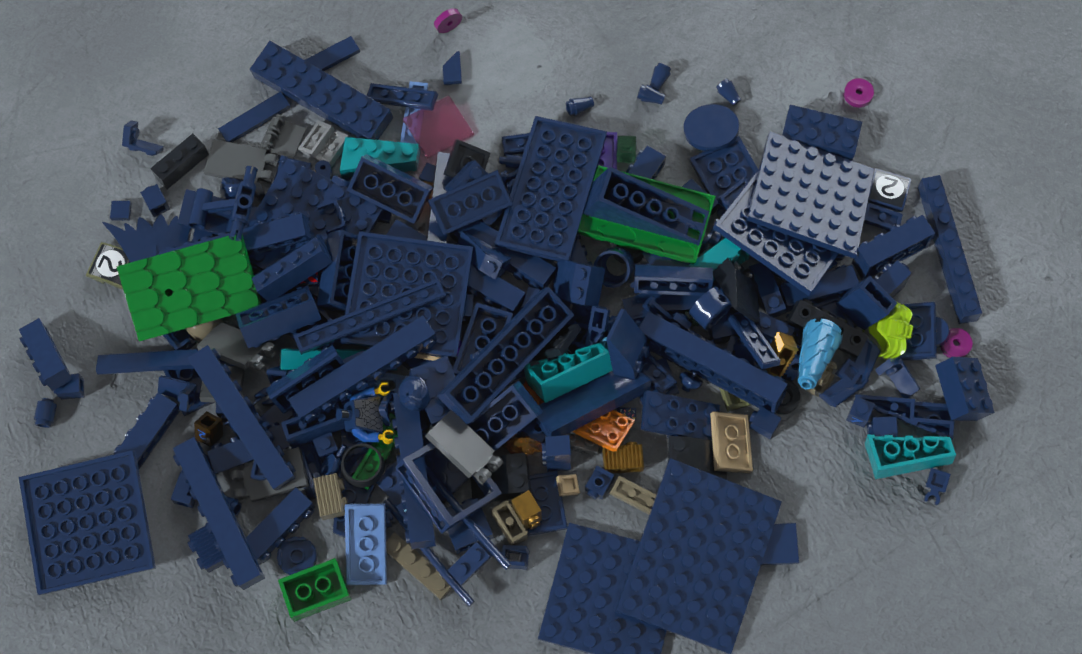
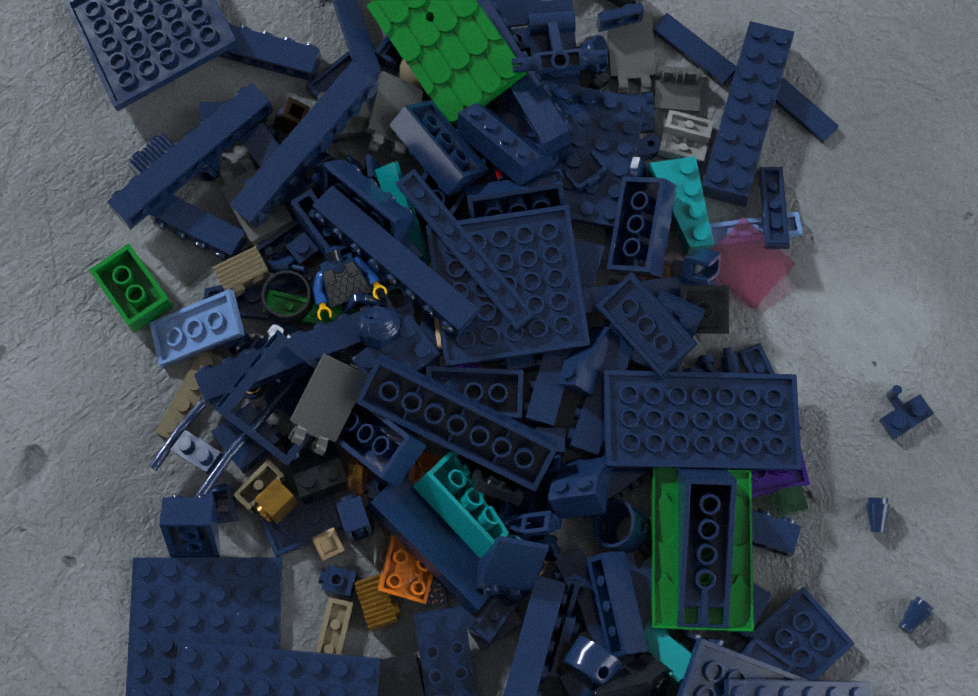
camera: 70 degrees right, 5 degrees up
(178, 389) = (324, 78): dark blue bracket -> none
(211, 154) = (627, 15): none -> dark blue plate
(296, 555) = (170, 259): dark blue tile -> none
(434, 155) = (702, 266): none -> dark blue window
(448, 20) = (896, 232): magenta piece -> none
(452, 70) = (832, 259): dark blue tile -> none
(529, 579) = (190, 526): none -> dark blue slope
(578, 105) = (833, 426): dark blue cone -> none
(583, 56) = (905, 415): none -> dark blue plate
(660, 75) = (907, 518): dark blue cone -> none
(689, 381) = (499, 661): dark blue piece -> none
(711, 127) = (855, 604): dark blue tile -> none

